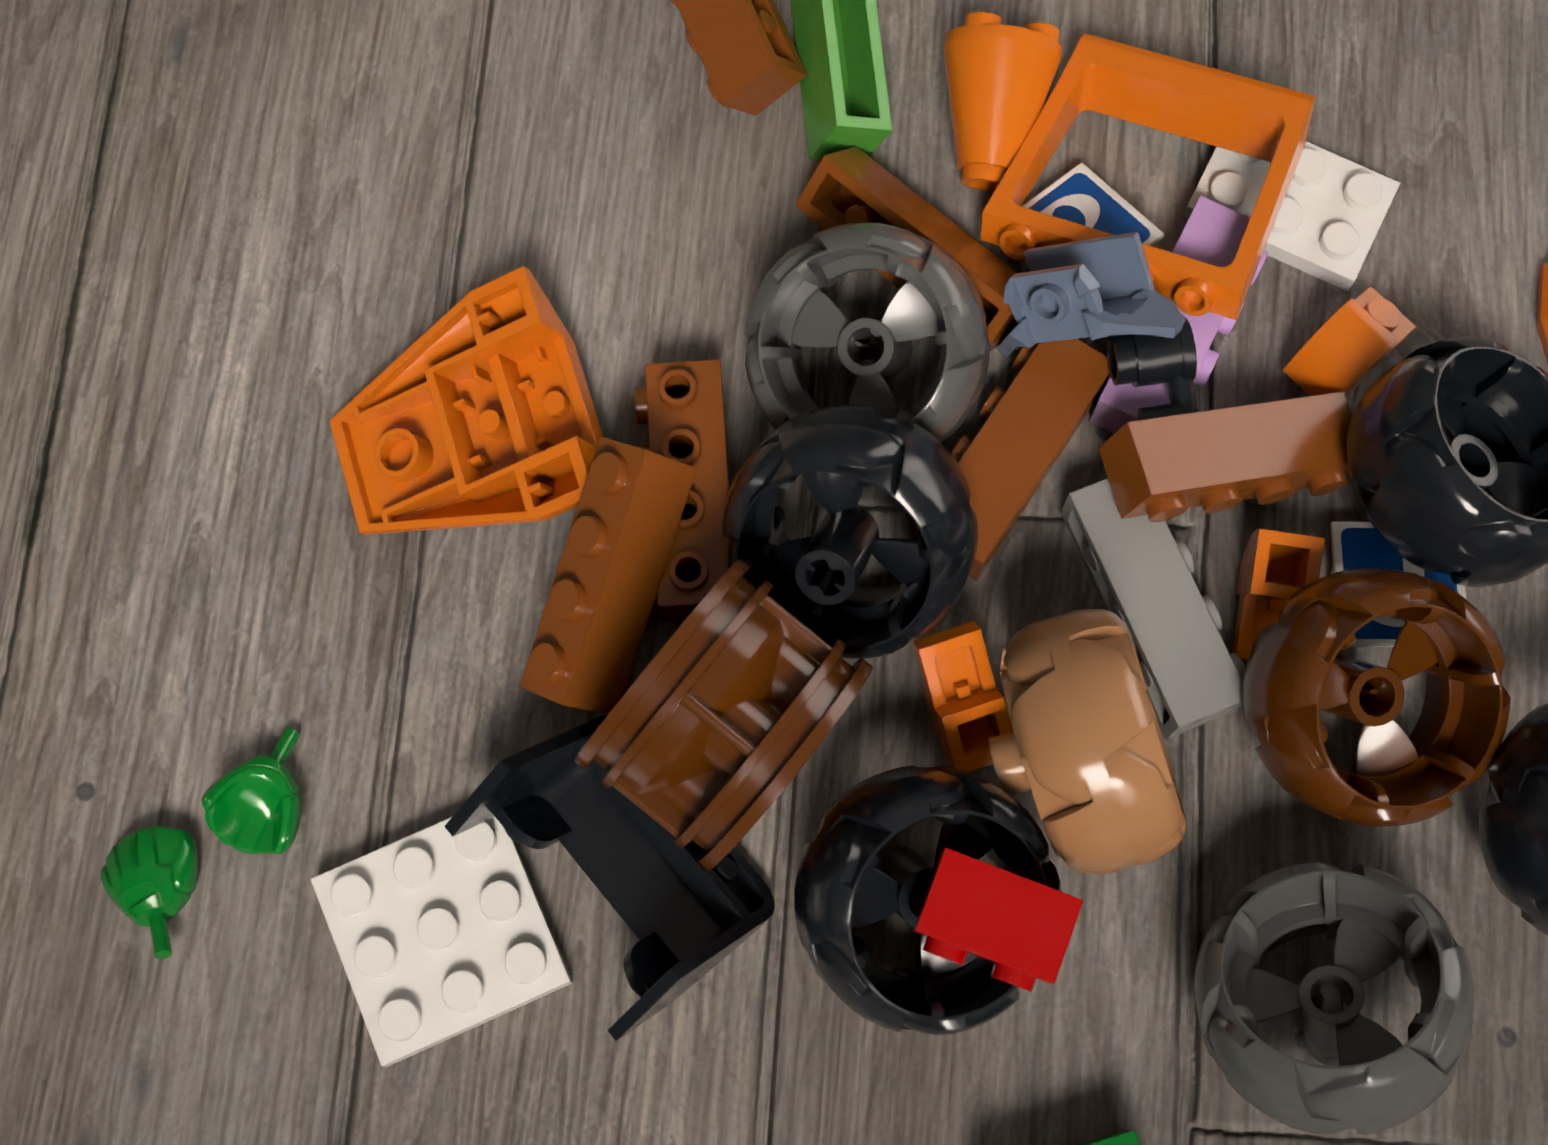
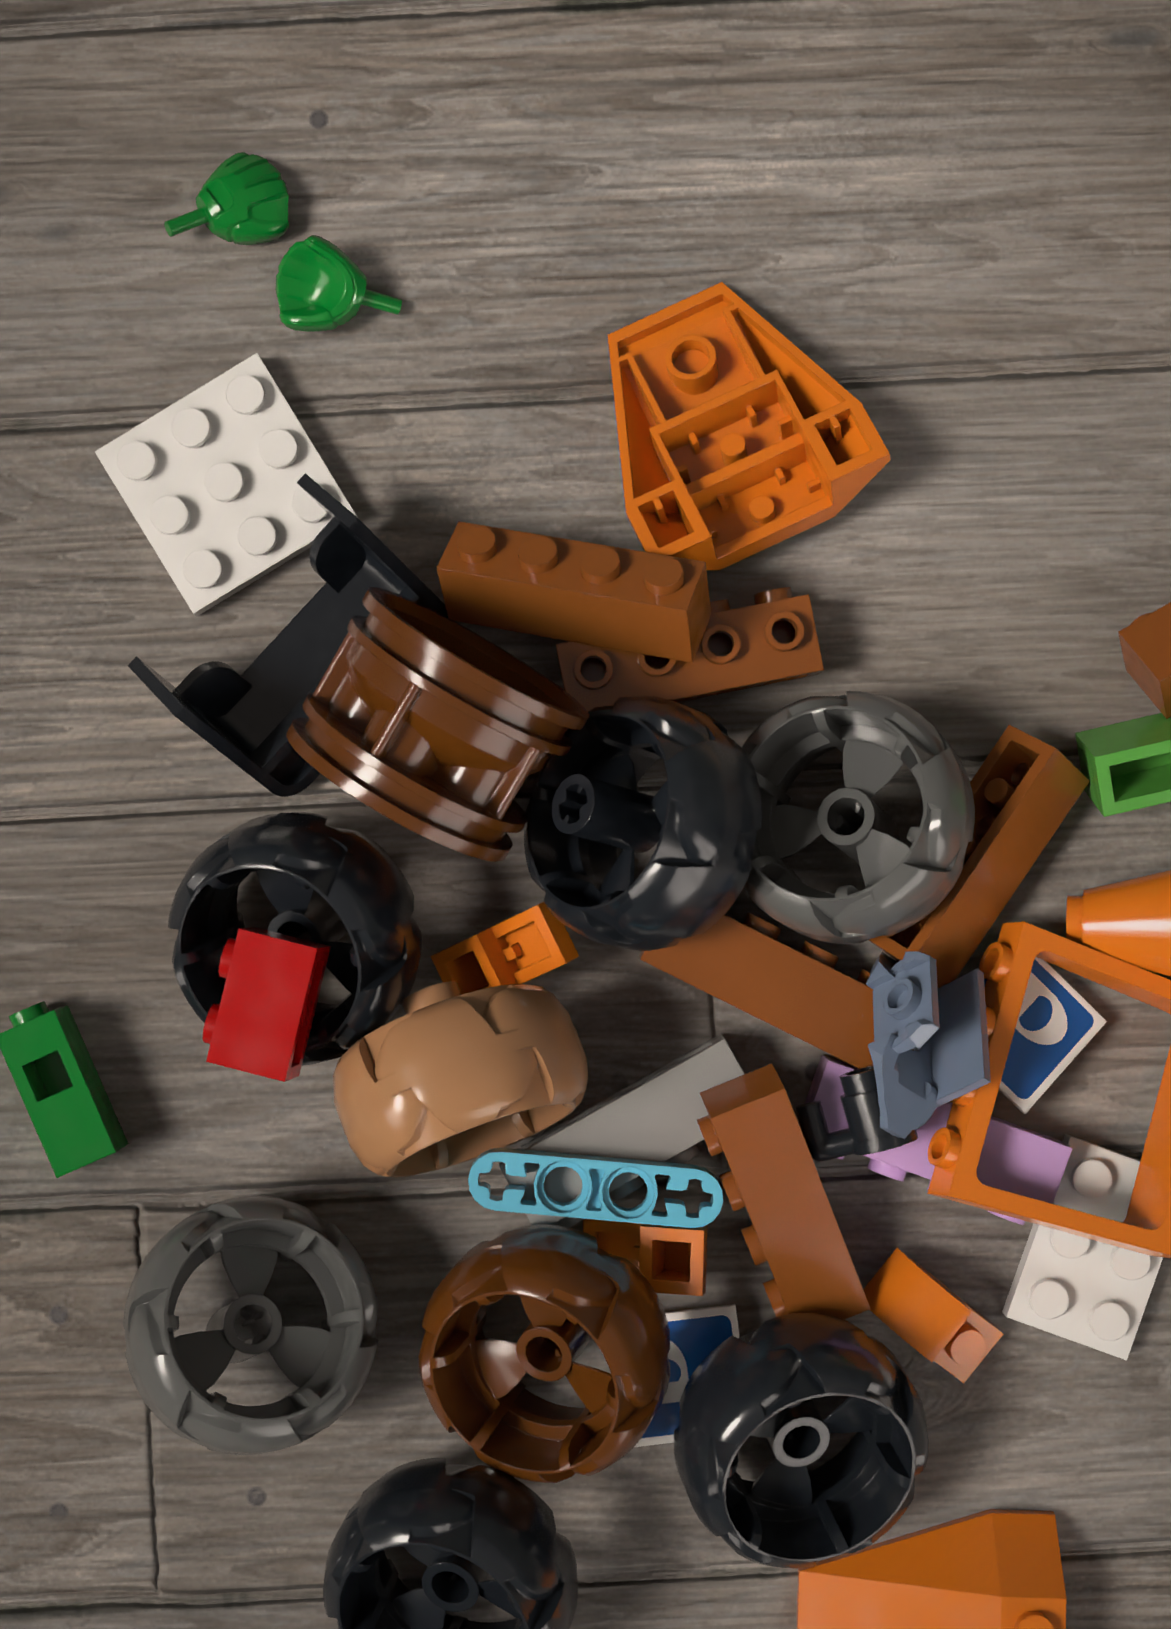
camera: 85 degrees right, 15 degrees up
(1202, 628) = (594, 1198): none -> medium azure beam

